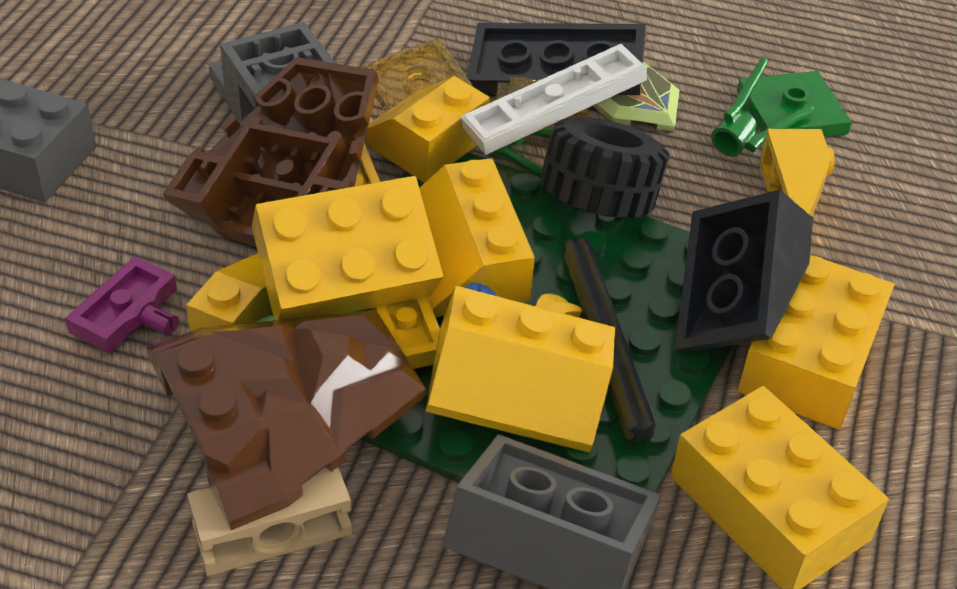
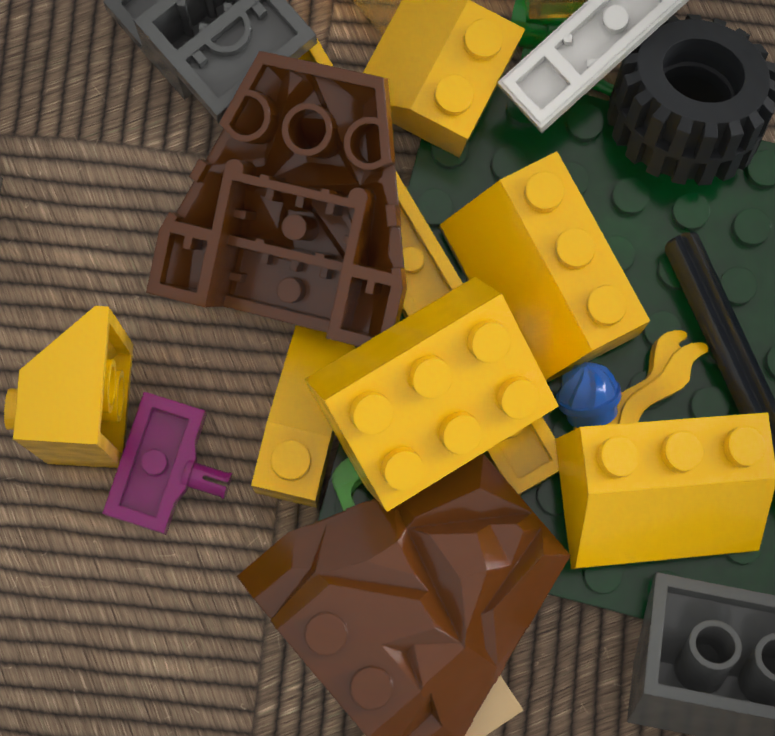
camera: 15 degrees left, 35 degrees up
(78, 215) = (75, 395): none -> yellow slope

